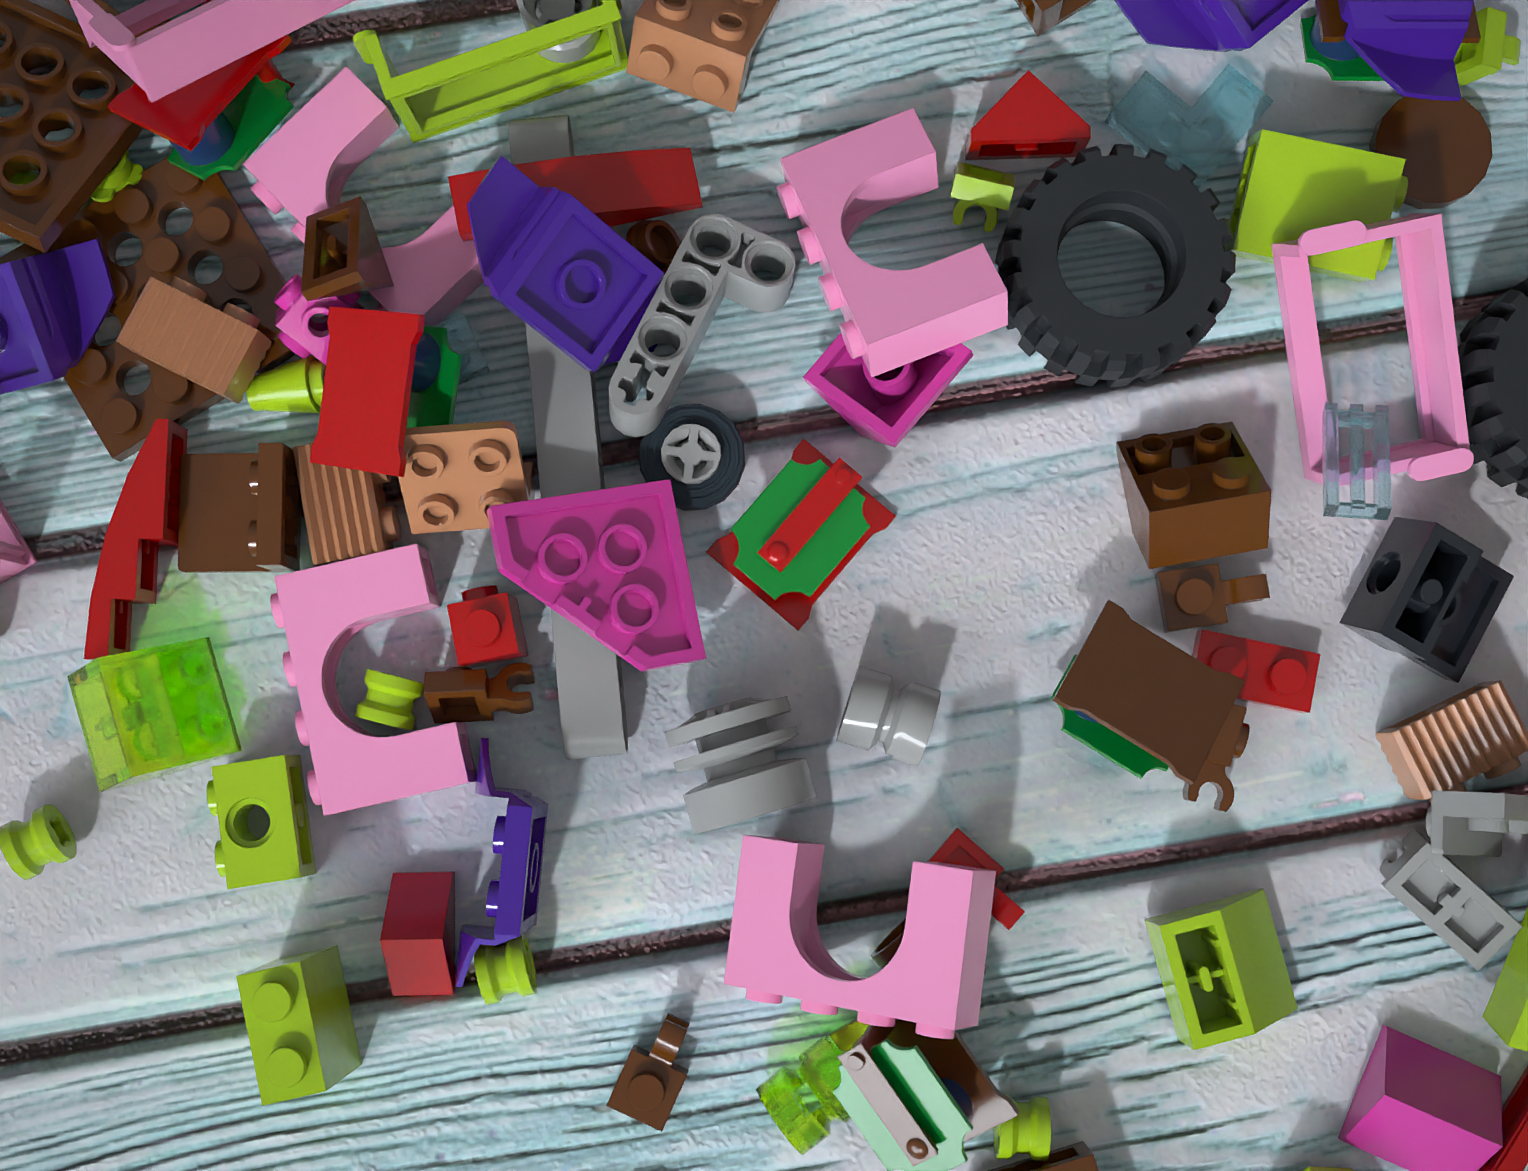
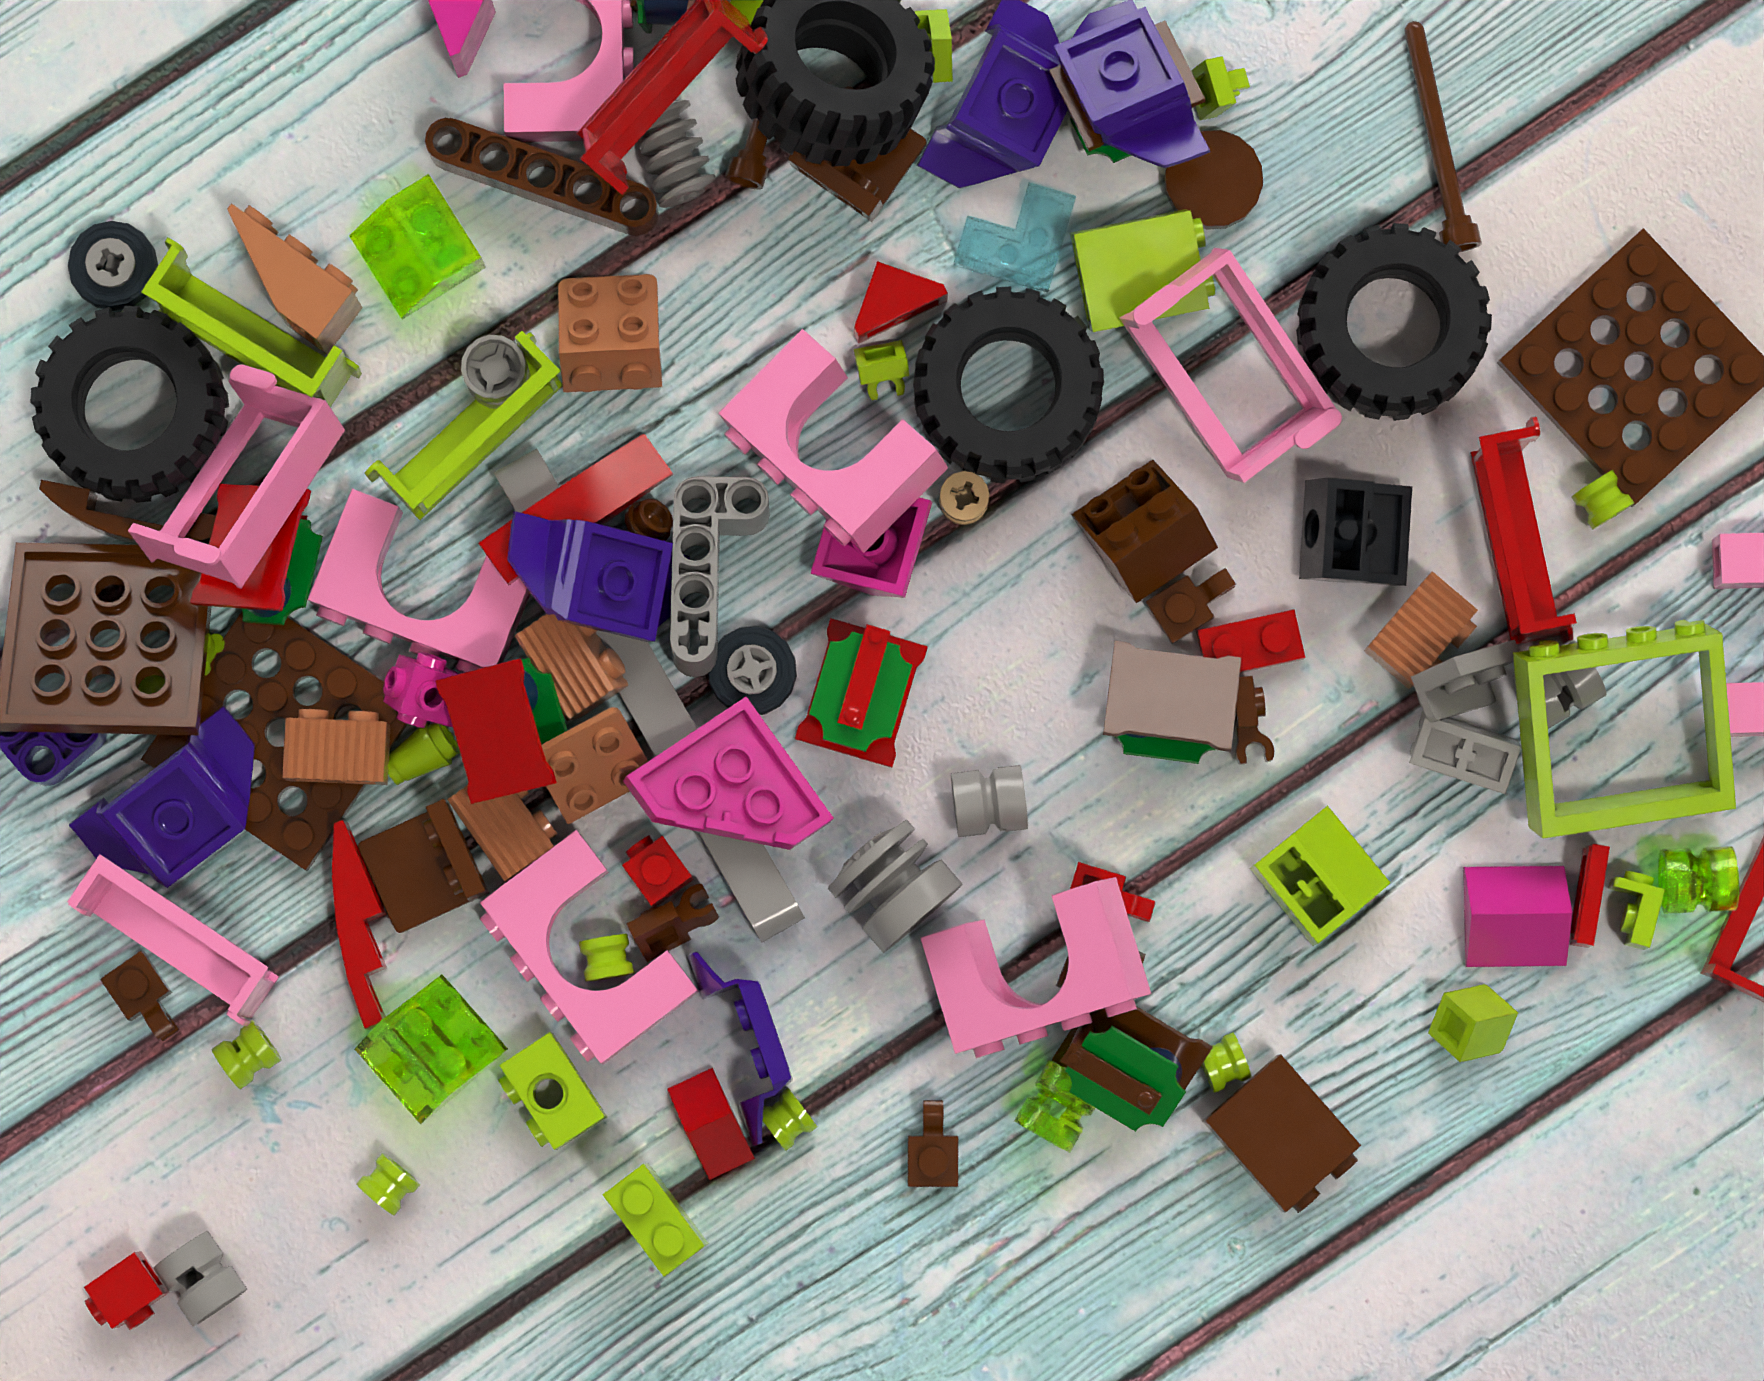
camera: 30 degrees left, 0 degrees up
(342, 253) = (421, 634): reddish brown slope -> none
(499, 361) = (579, 663): none -> nougat brick
(999, 381) = (961, 506): none -> tan wheel
(1356, 421) = (1240, 422): clear light blue tile -> none

